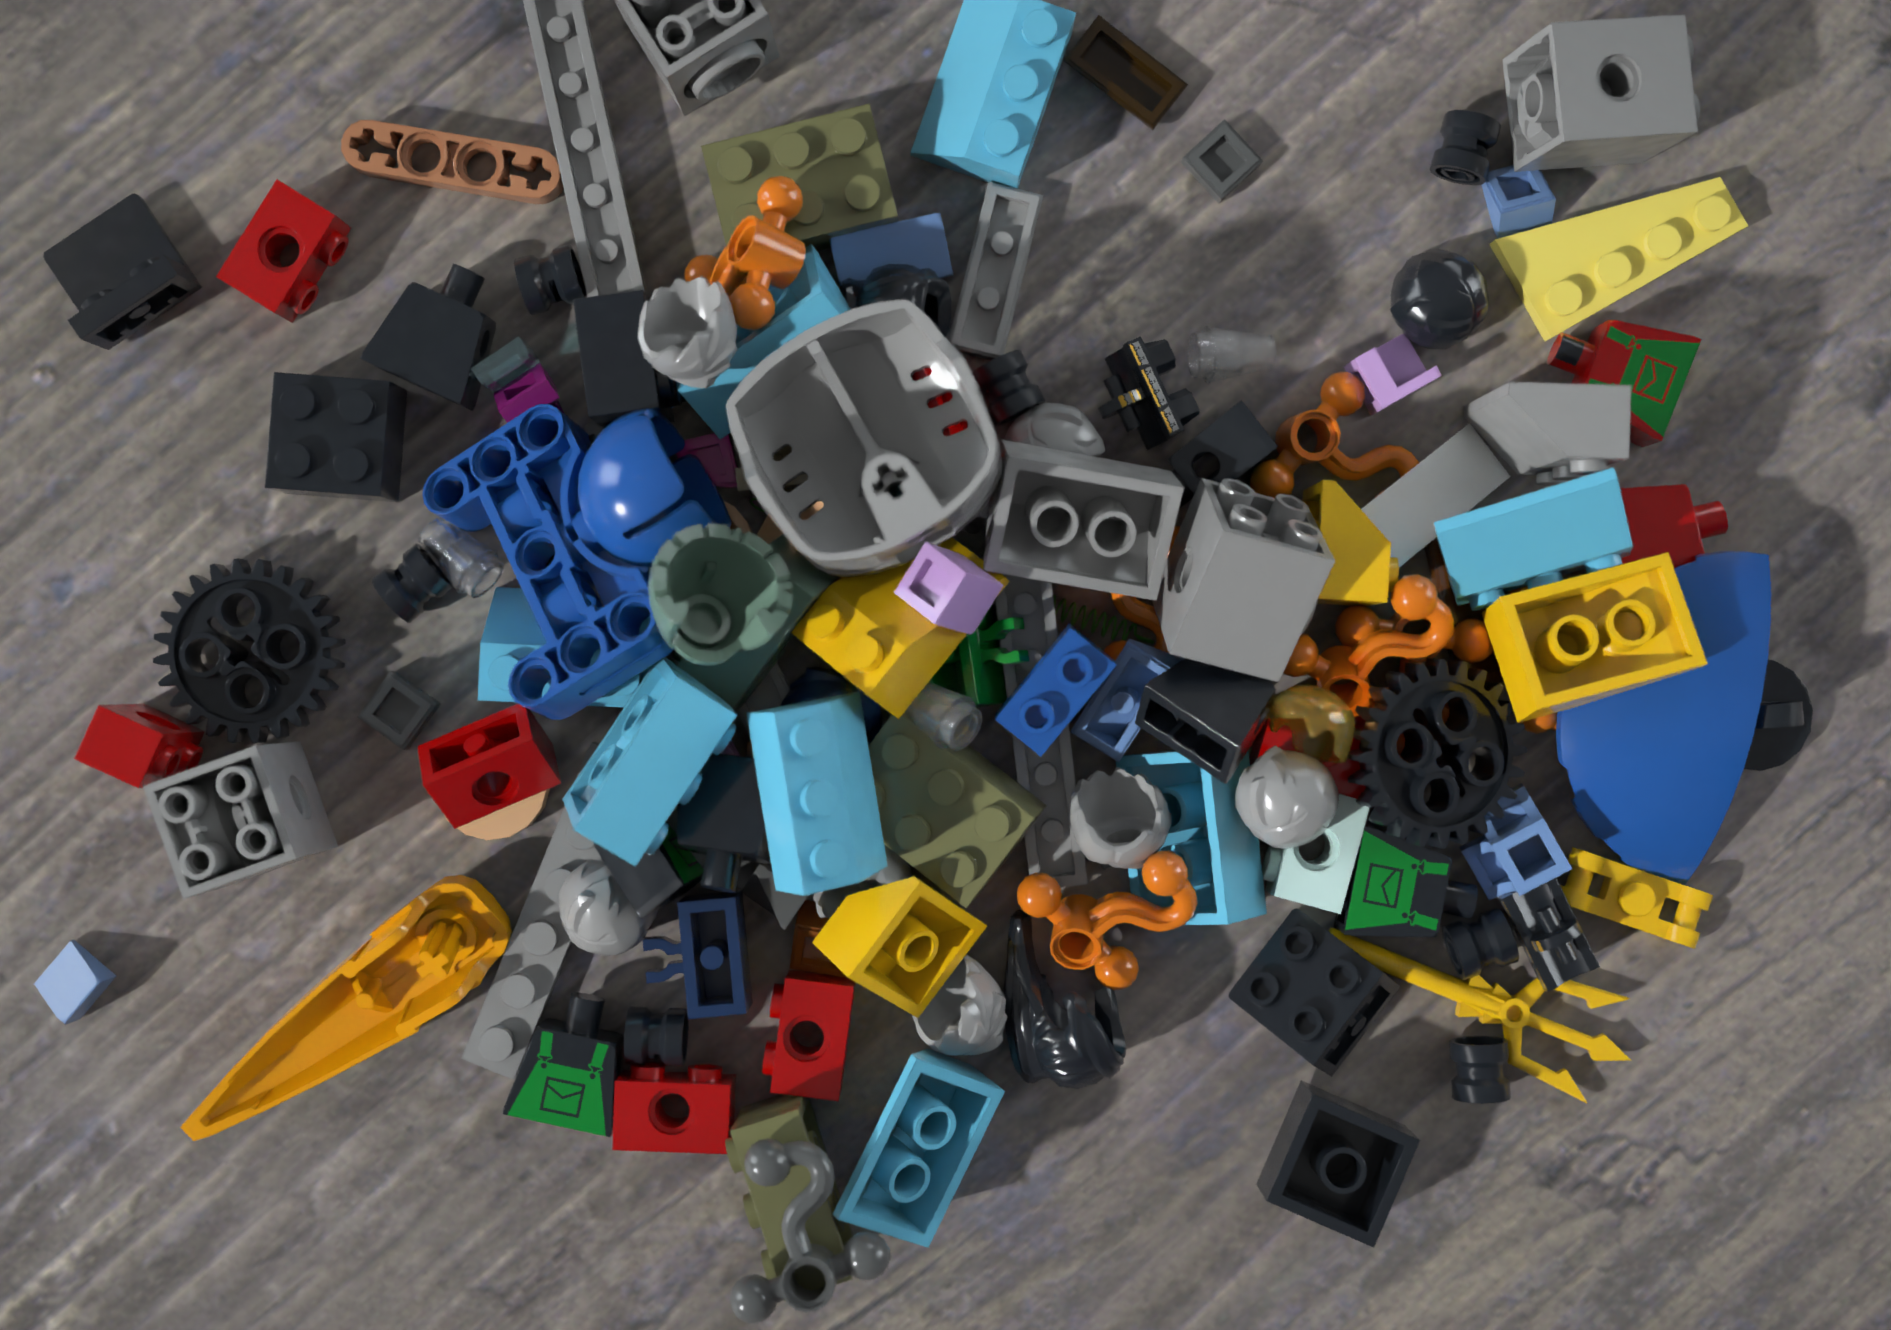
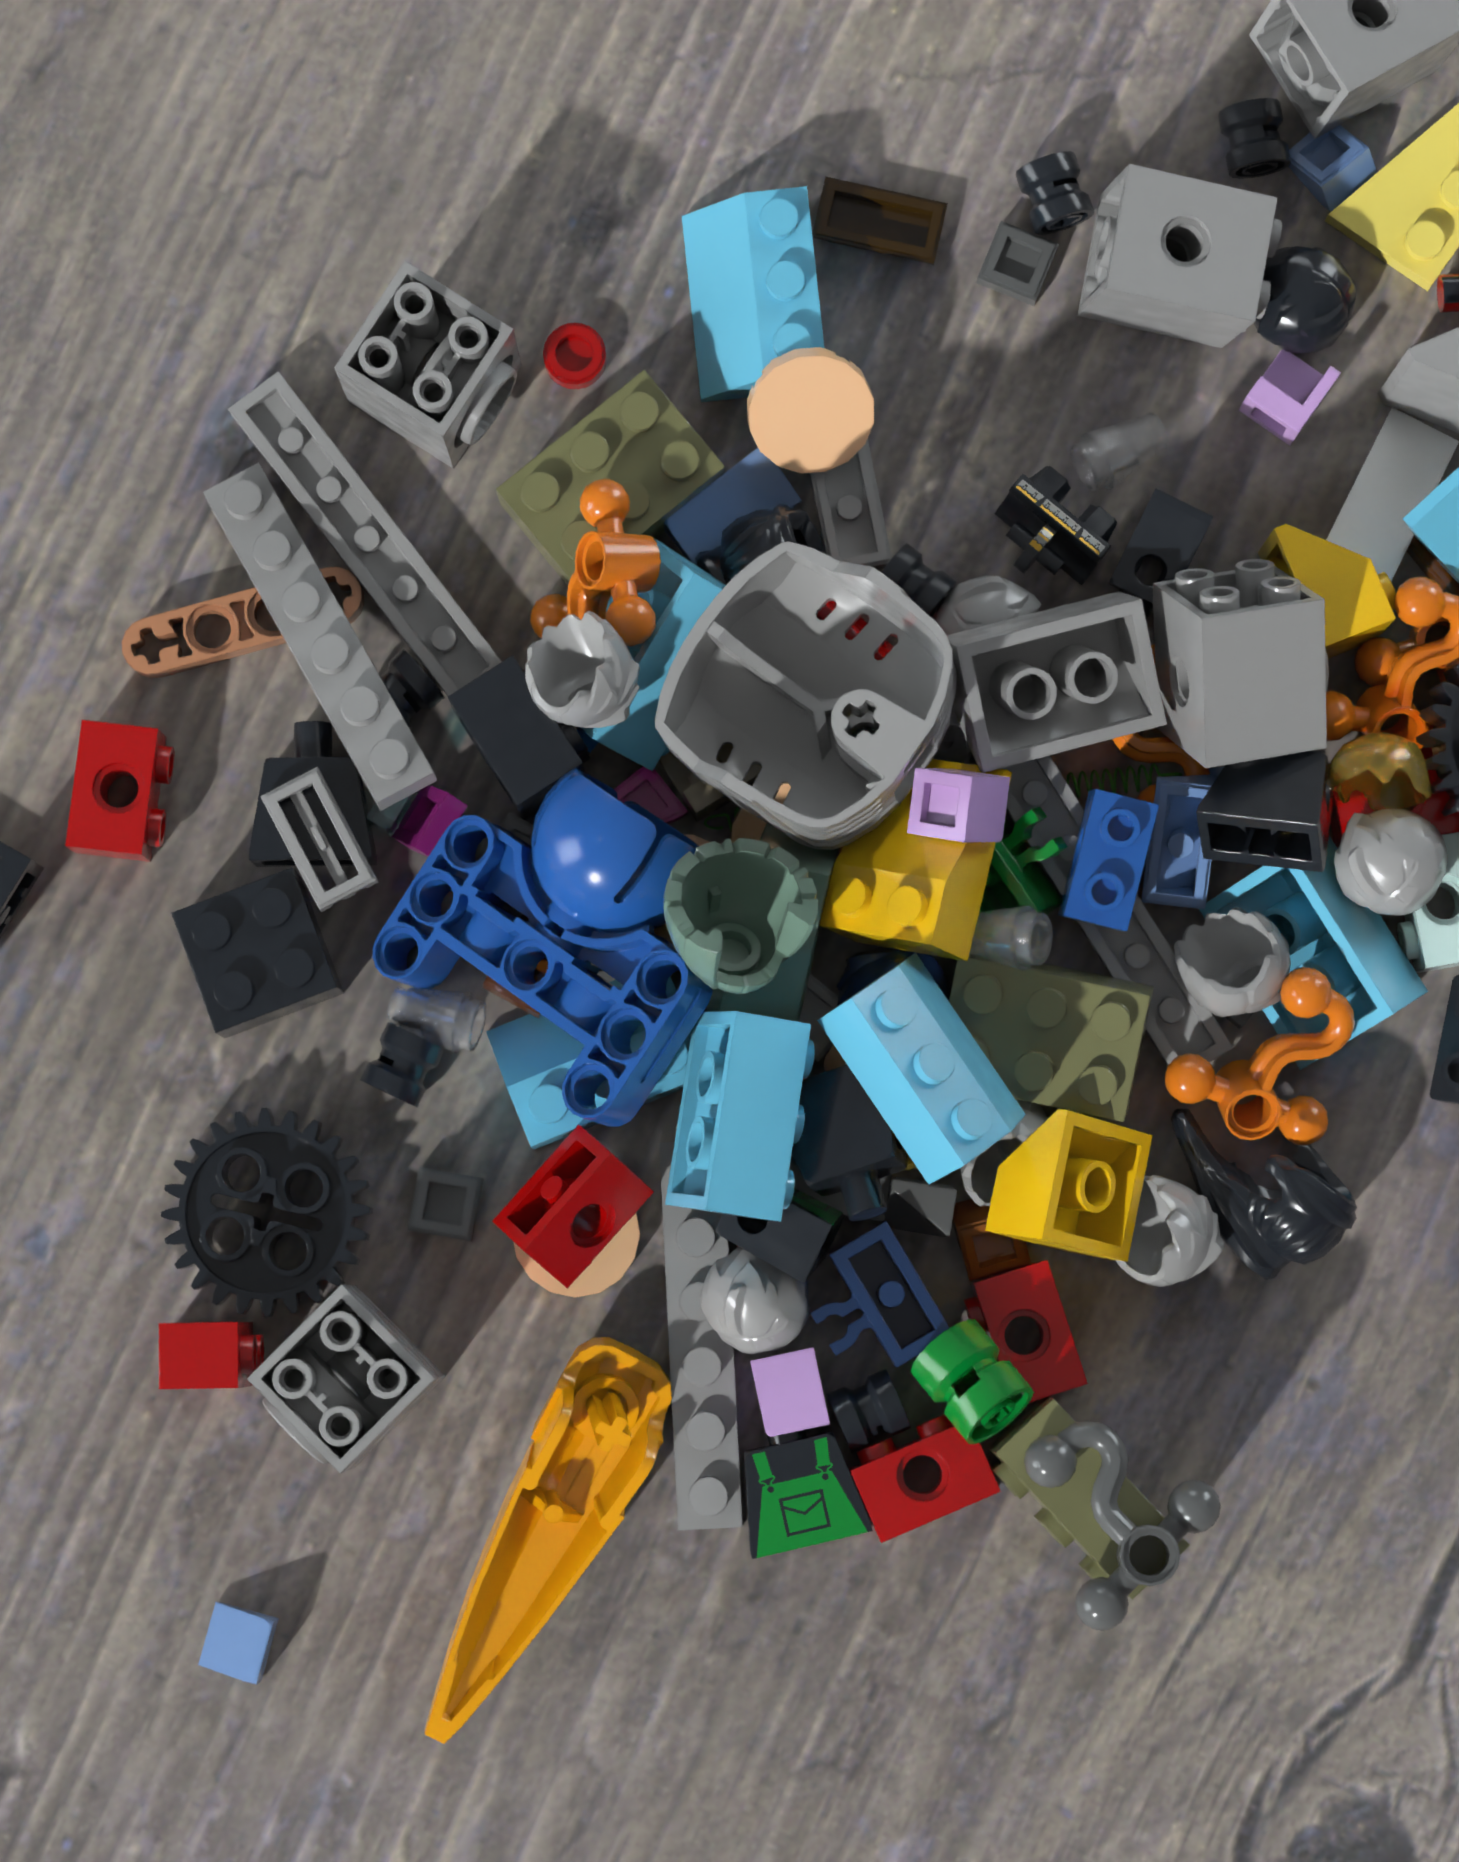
camera: 25 degrees left, 5 degrees down
(445, 368) = (344, 887): none -> light grey tile
(502, 202) = (320, 637): none -> light grey plate
(599, 993) = (790, 1392): none -> lavender panel
(745, 1038) = (965, 1373): none -> green wheel
(824, 68) = (574, 355): none -> red tile
(920, 1148) = (1195, 1389): medium azure slope -> none
(990, 201) = (810, 410): none -> light nougat tile
(1279, 116) = (1054, 192): none -> black wheel
(1340, 396) = (1251, 440): orange piece -> none
(1357, 215) = (1179, 256): none -> light grey brick

